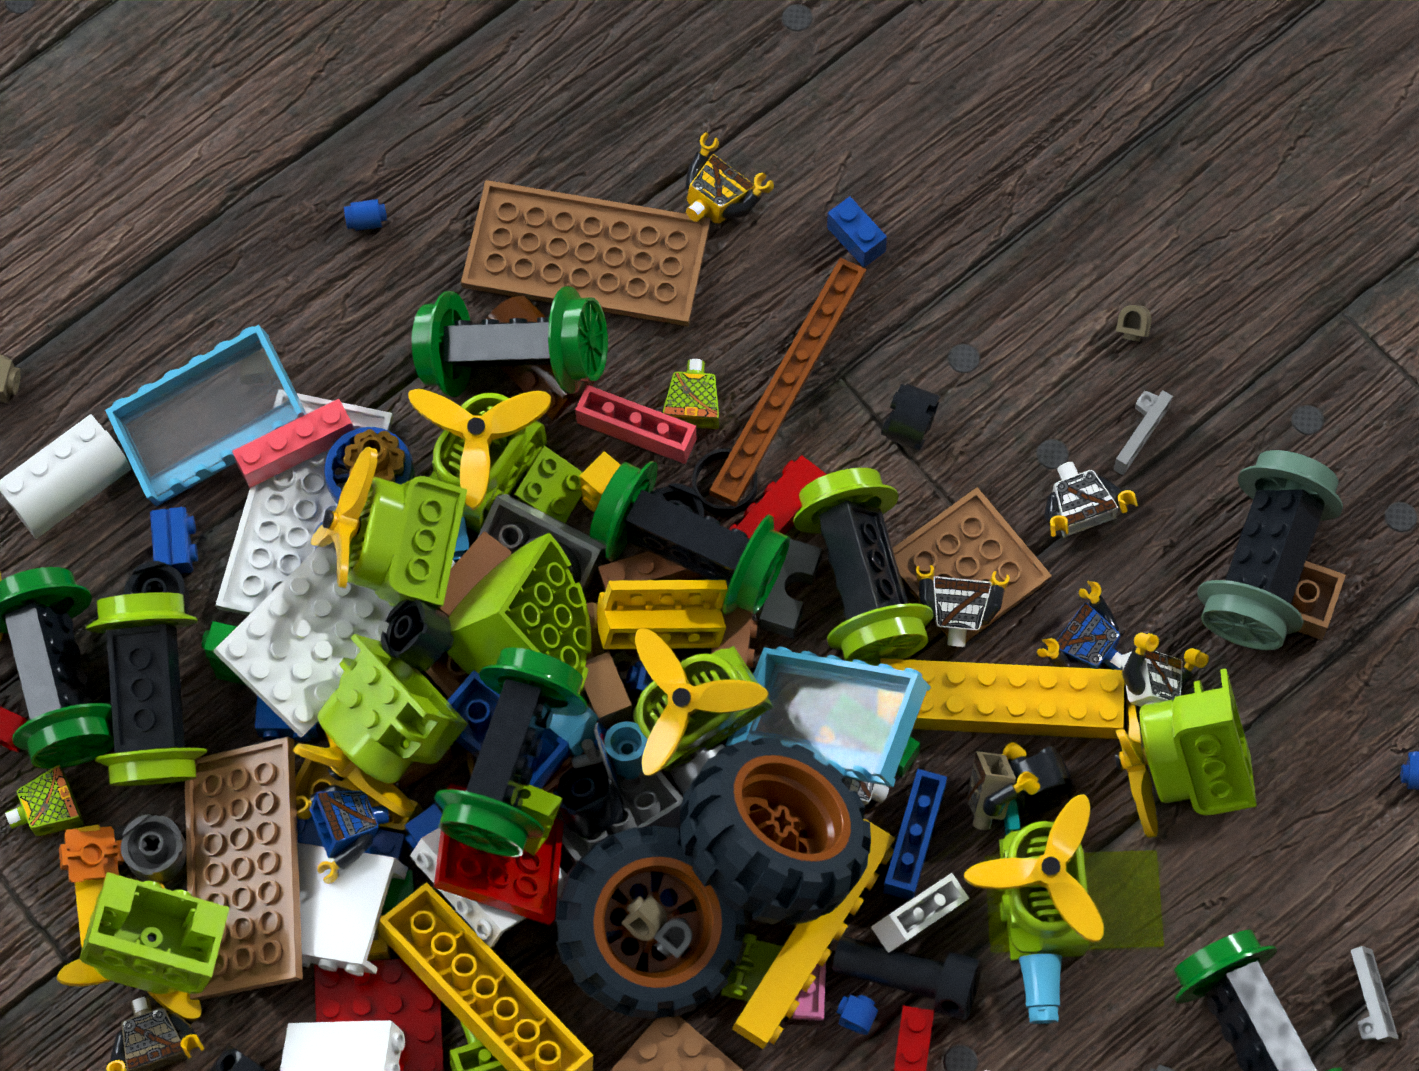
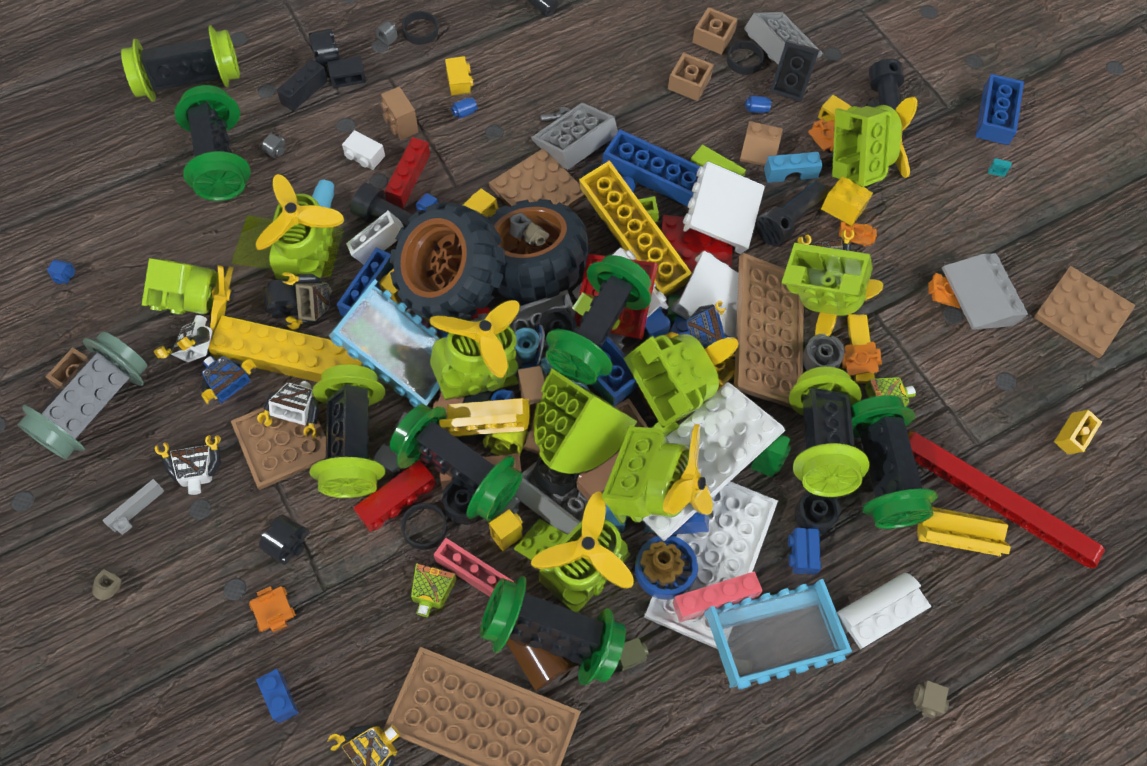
camera: 175 degrees left, 5 degrees down
(400, 364) = (633, 654): none -> olive brick
(417, 634) = (649, 412): black brick -> none
(787, 382) = (358, 588): dark orange plate -> none
(902, 338) = (271, 609): none -> orange piece
(1380, 1022) = (147, 155): light grey hinge -> none

